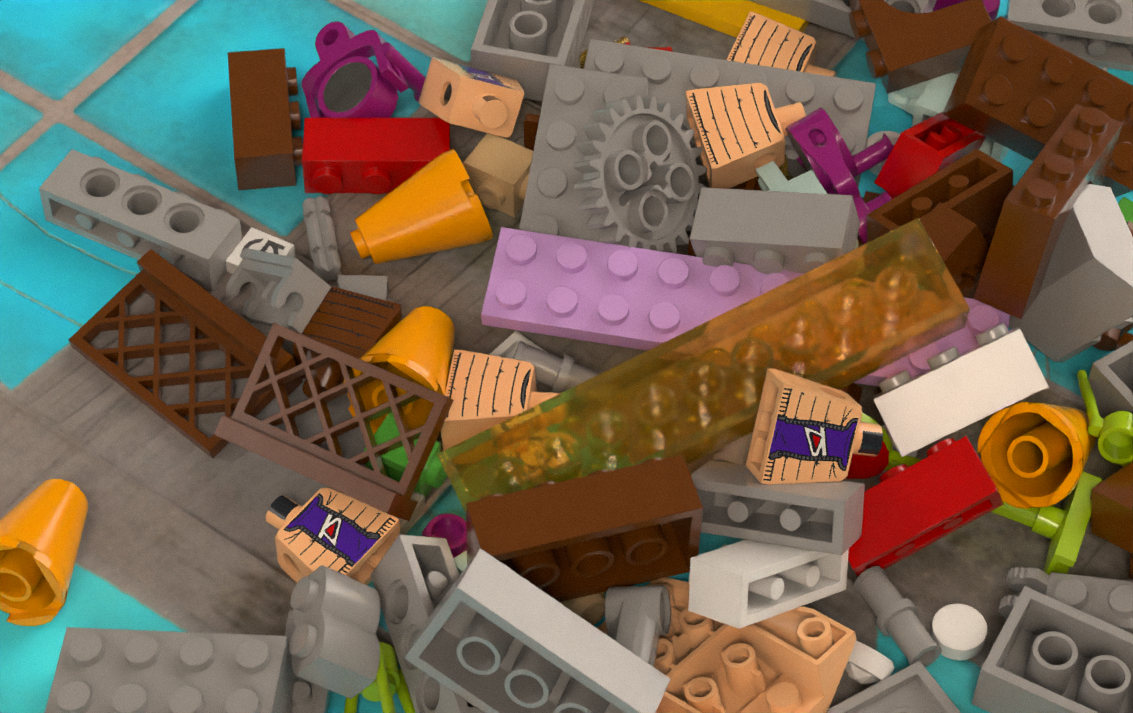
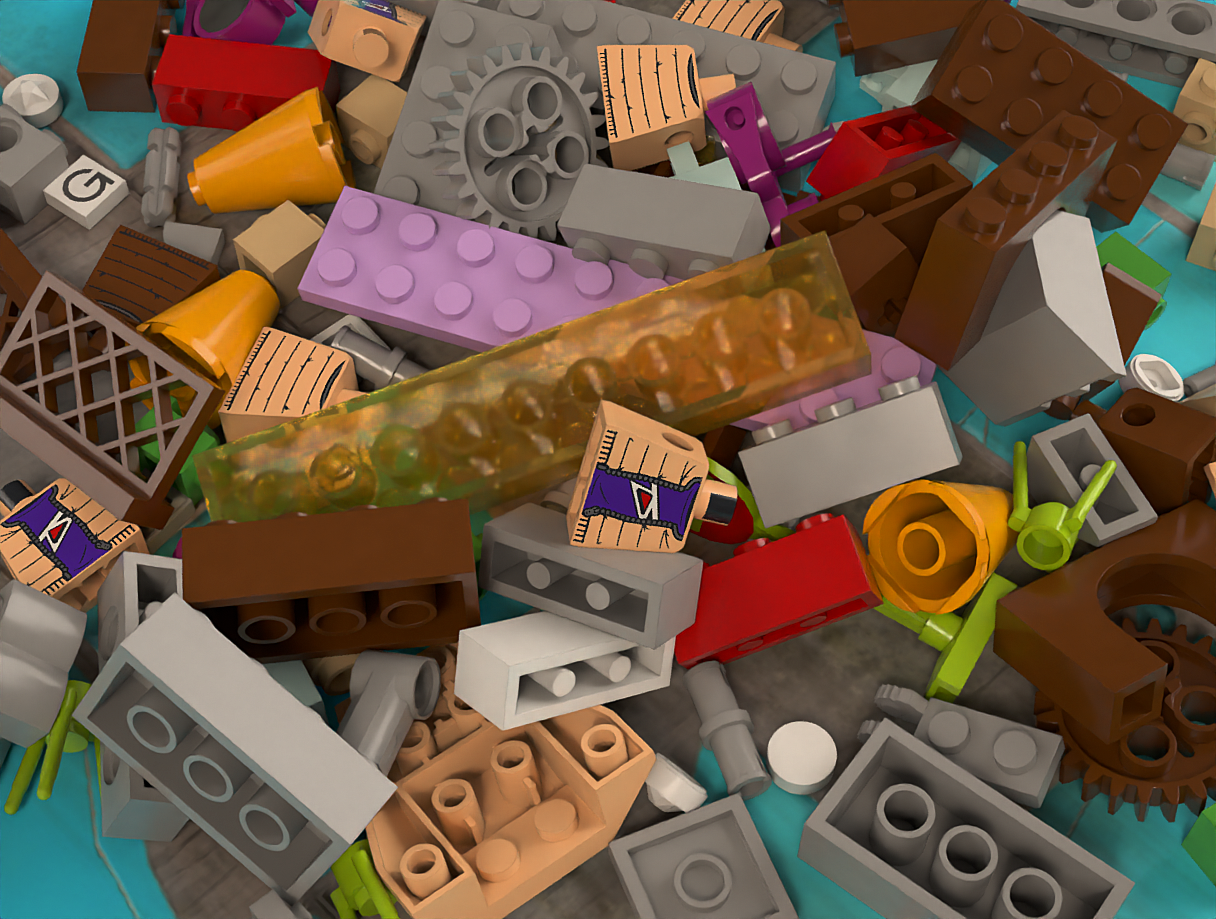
camera: 10 degrees right, 5 degrees up
(193, 180) = (34, 98): none -> white tile
(281, 289) = (87, 233): light grey hinge -> none
(450, 284) = (280, 248): none -> tan brick

